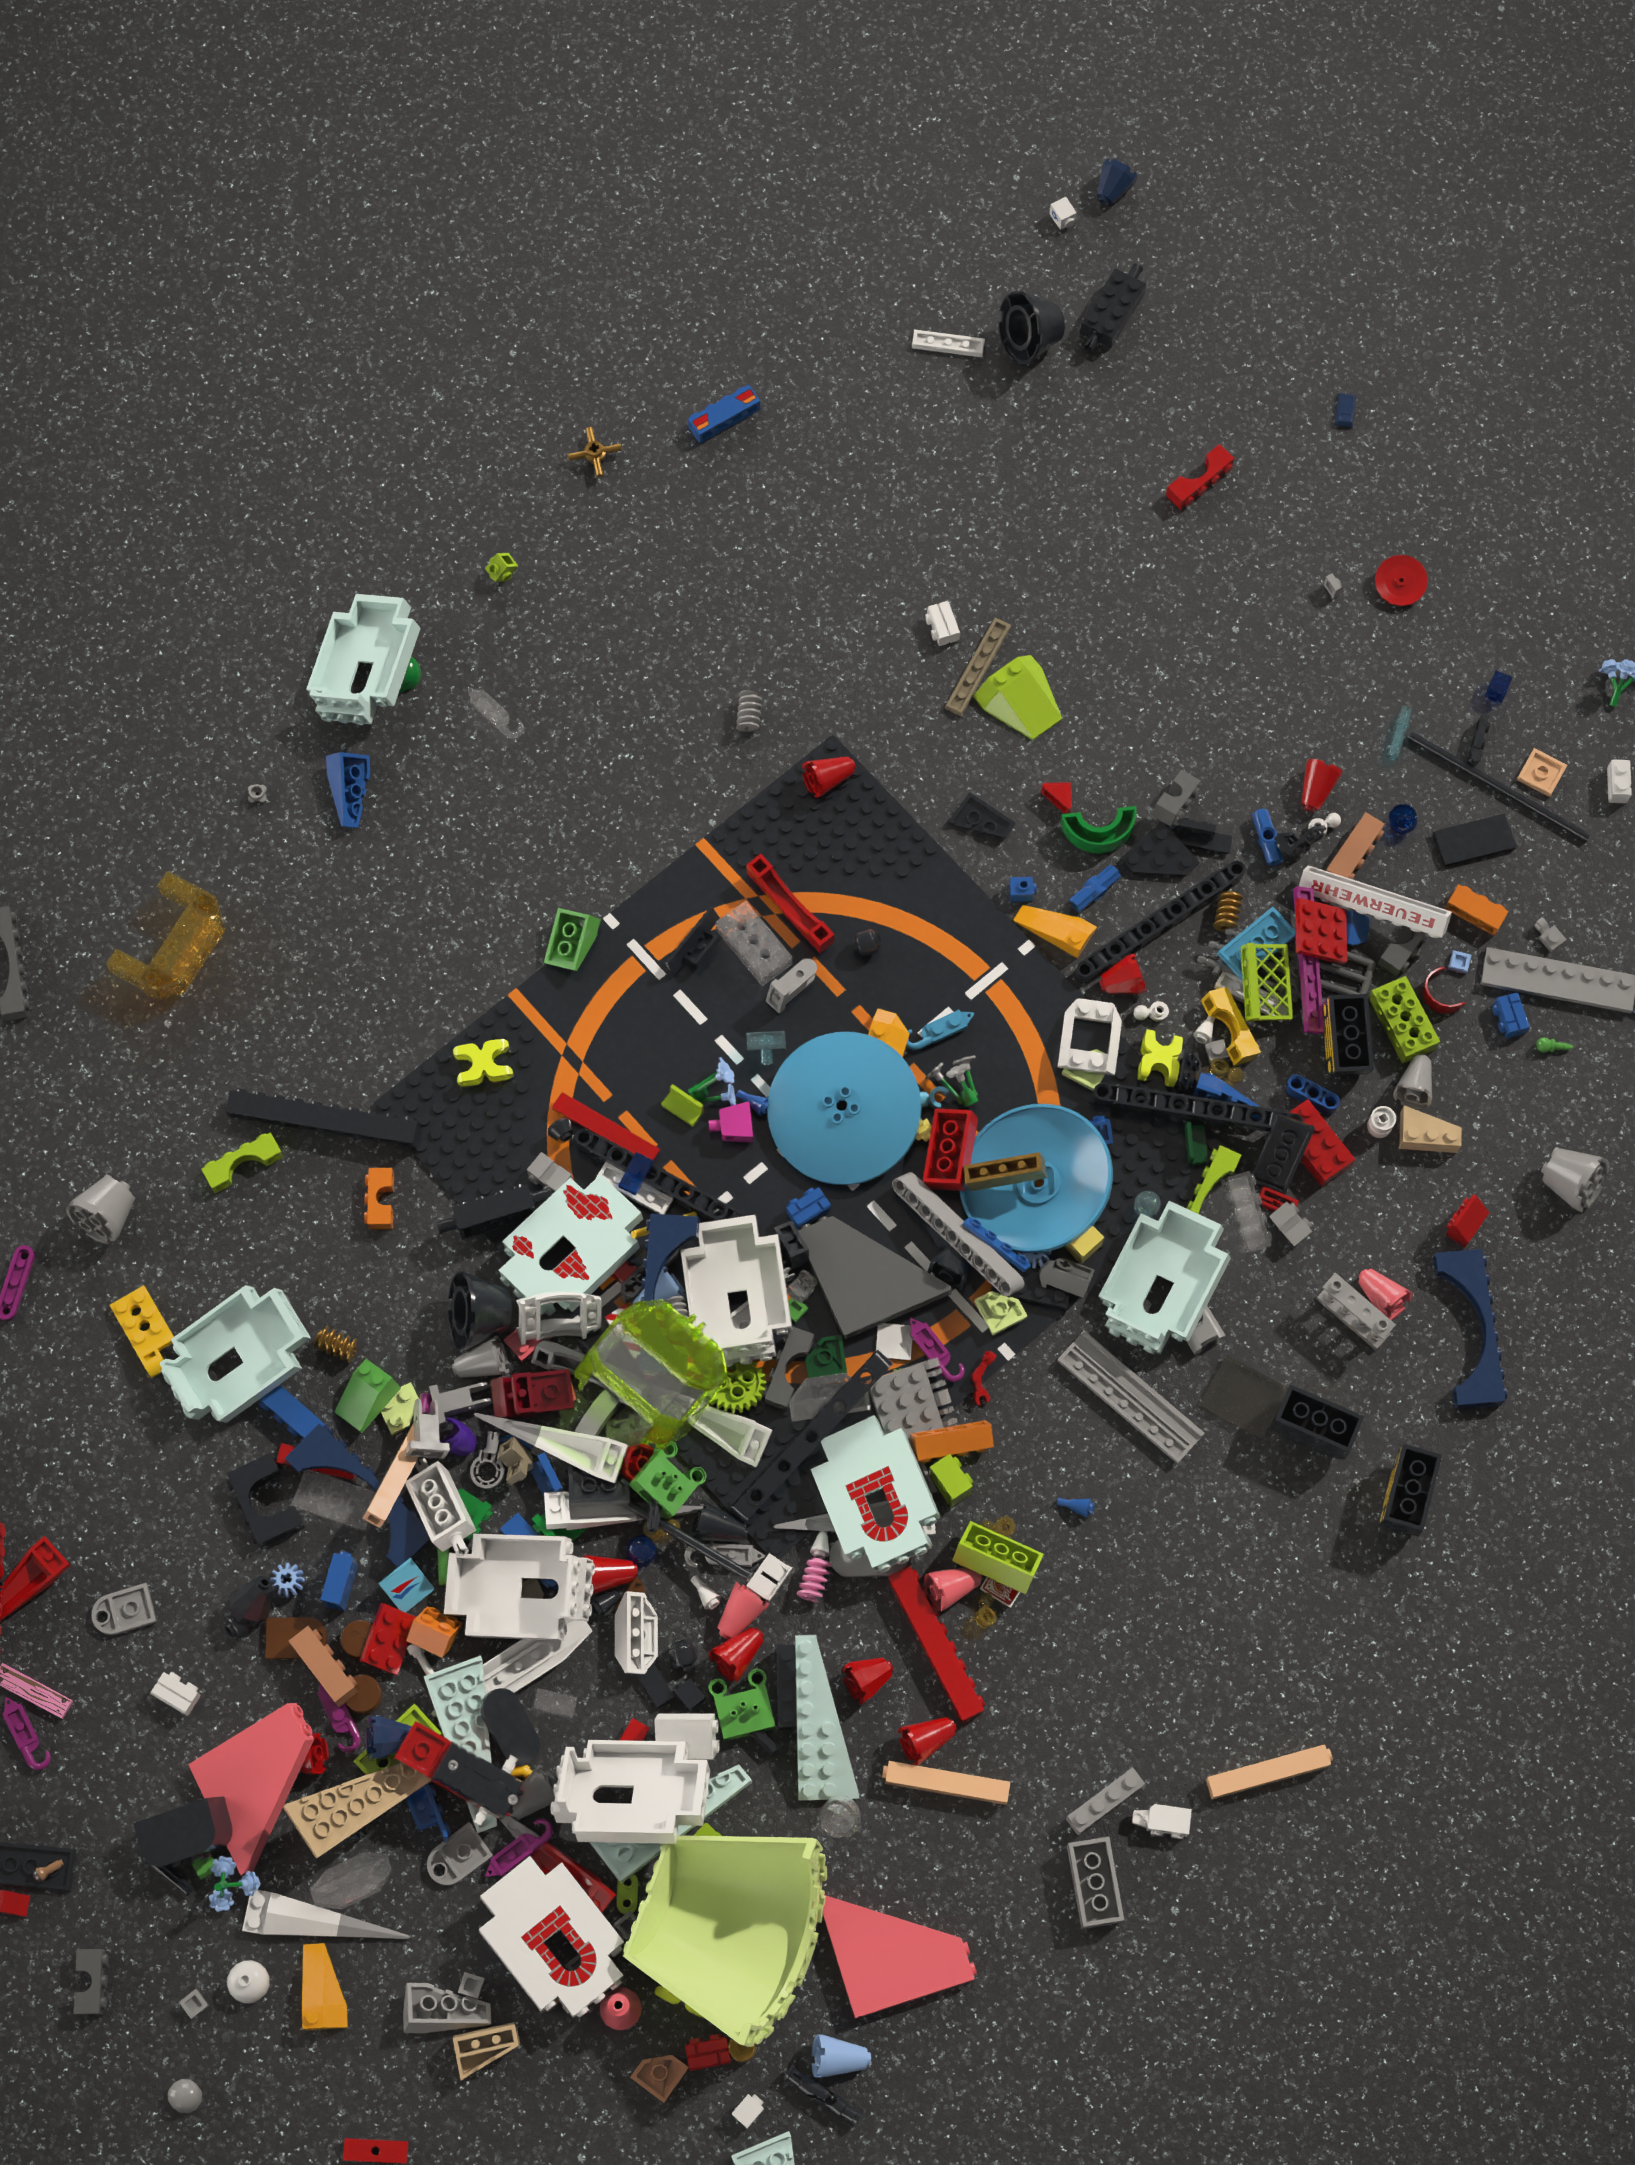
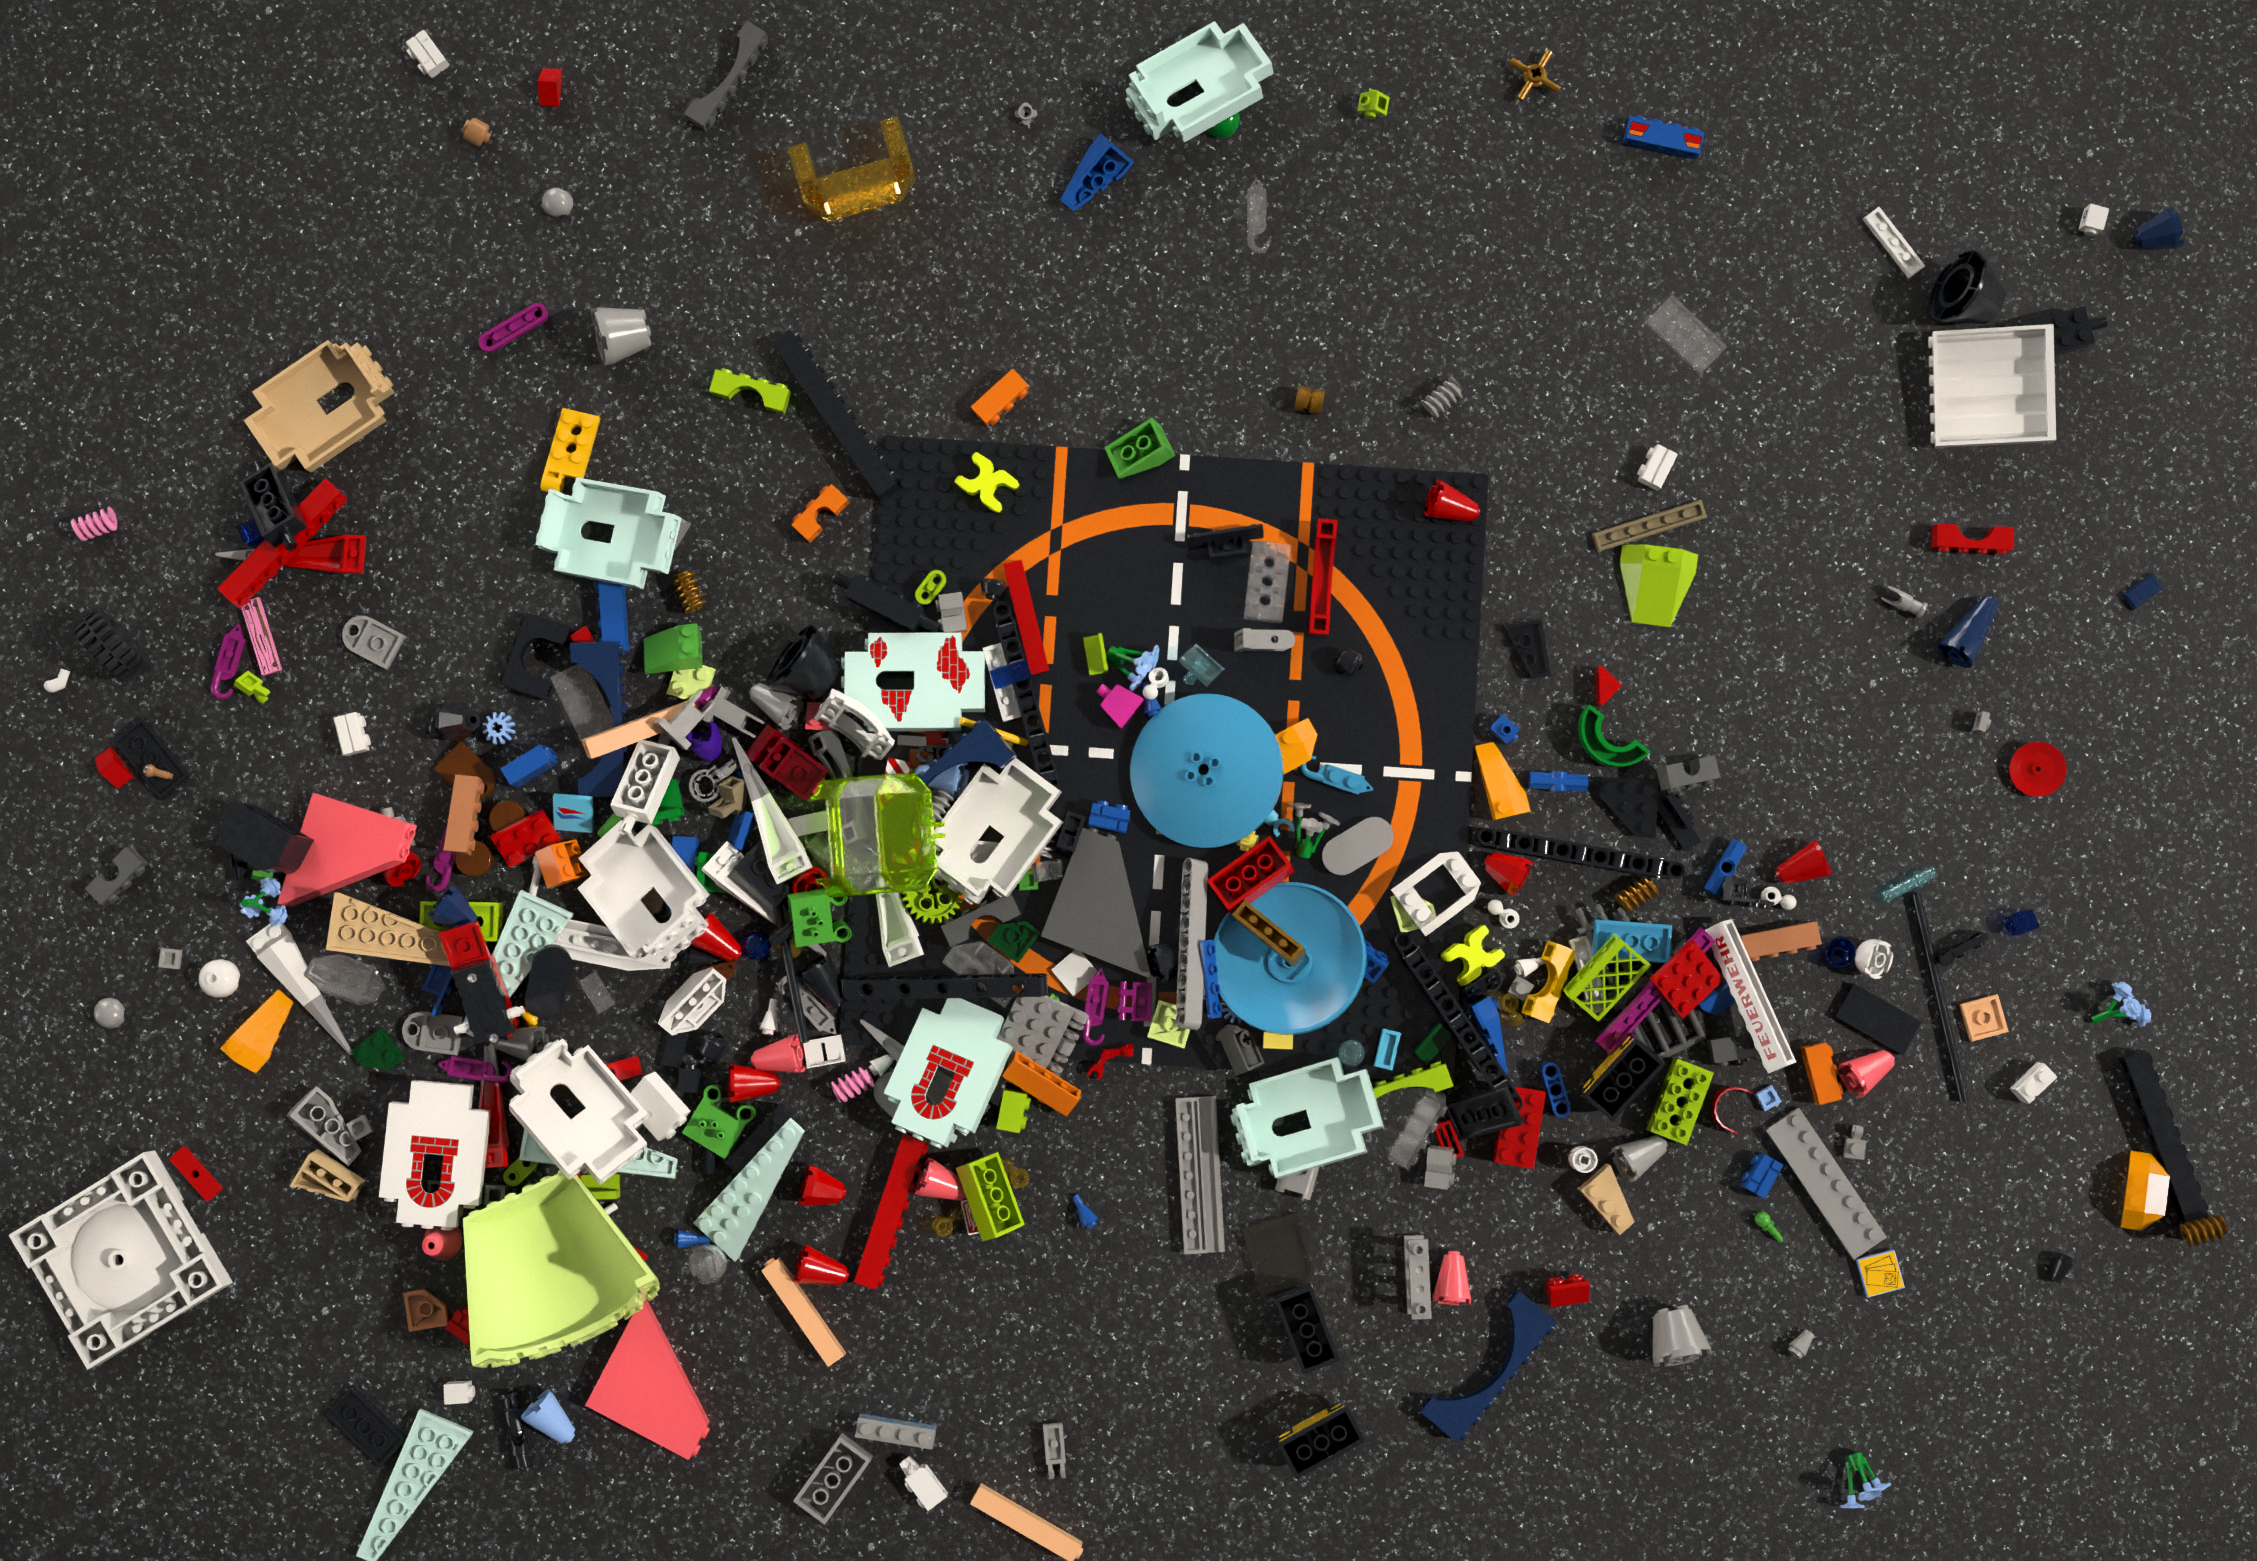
camera: 45 degrees right, 15 degrees up
(60, 1732) = (252, 685): none -> lime plate
(429, 1914) = (379, 1051): none -> dark green plate
(433, 998) = (1000, 398): none -> orange brick
(514, 1173) = (930, 587): none -> lime plate
(658, 797) = (1309, 400): none -> pearl gold wheel
(744, 1080) = (1150, 691): none -> white plate
(805, 1818) = (686, 1239): none -> blue cone
(872, 523) = (1685, 334): none -> clear plate
(963, 1314) = (1141, 1001): none -> magenta plate
(1003, 1061) = (1357, 846): none -> light grey tile
(1110, 369) = (1993, 386): none -> white panel
(1169, 1179) = (1387, 1049): none -> medium azure tile
(1203, 556) = (1907, 603): none -> light grey piece
(1232, 1697) = (1054, 1447): none -> light grey hinge
(1264, 541) = (1966, 638): none -> dark blue cone
(1428, 800) = (1873, 958): none -> white cylinder
(1504, 880) = (1865, 1072): none -> coral cone

